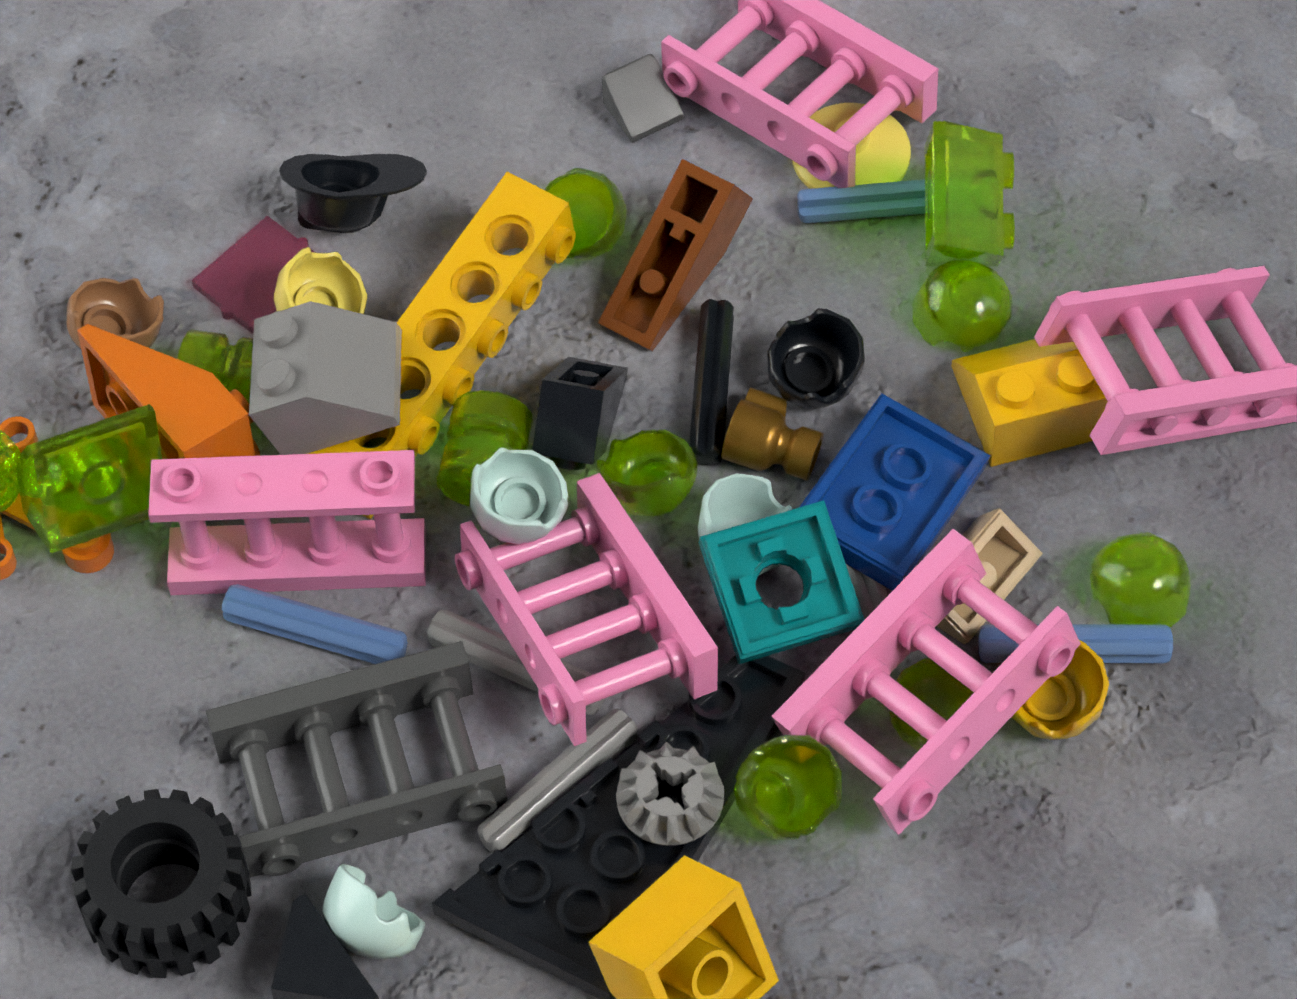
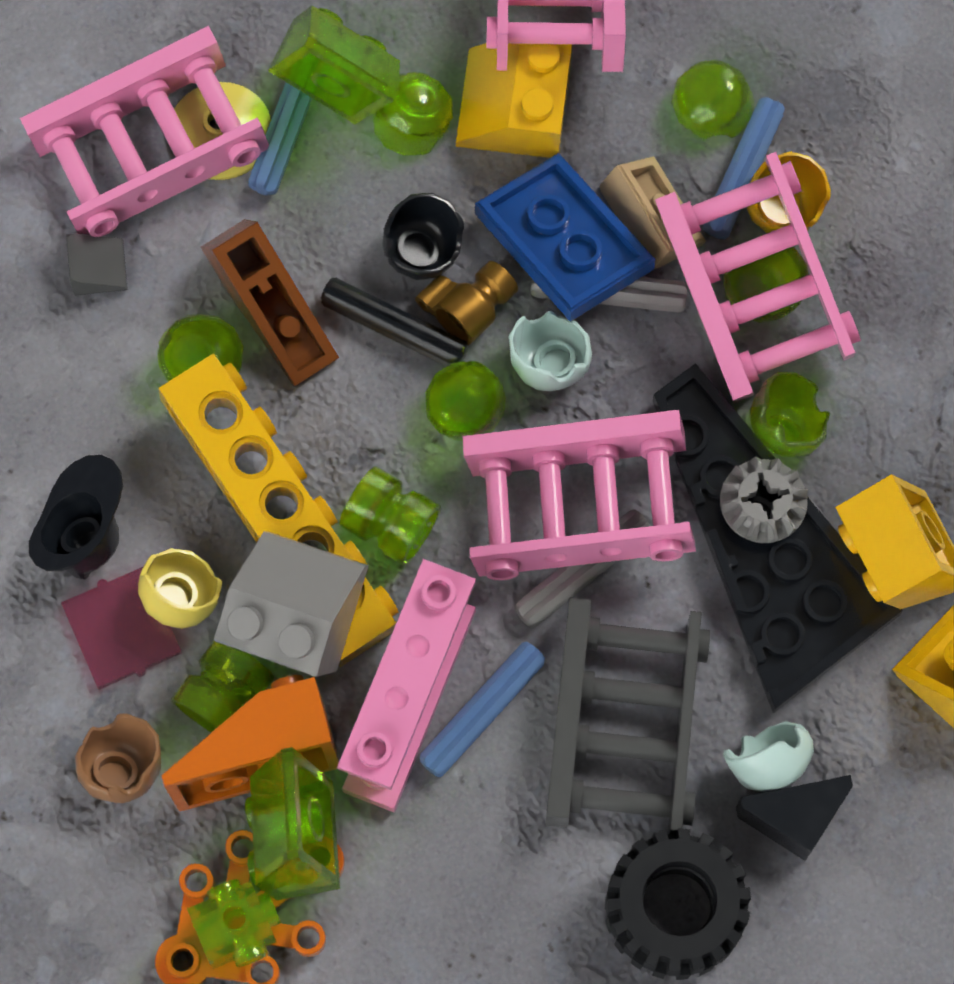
camera: 70 degrees left, 15 degrees up
(515, 817) = (708, 592): light grey axle -> none
(518, 495) = (469, 502): light aqua hair -> none
(578, 411) = (381, 429): black slope -> none
(795, 539) = (651, 325): teal piece -> none

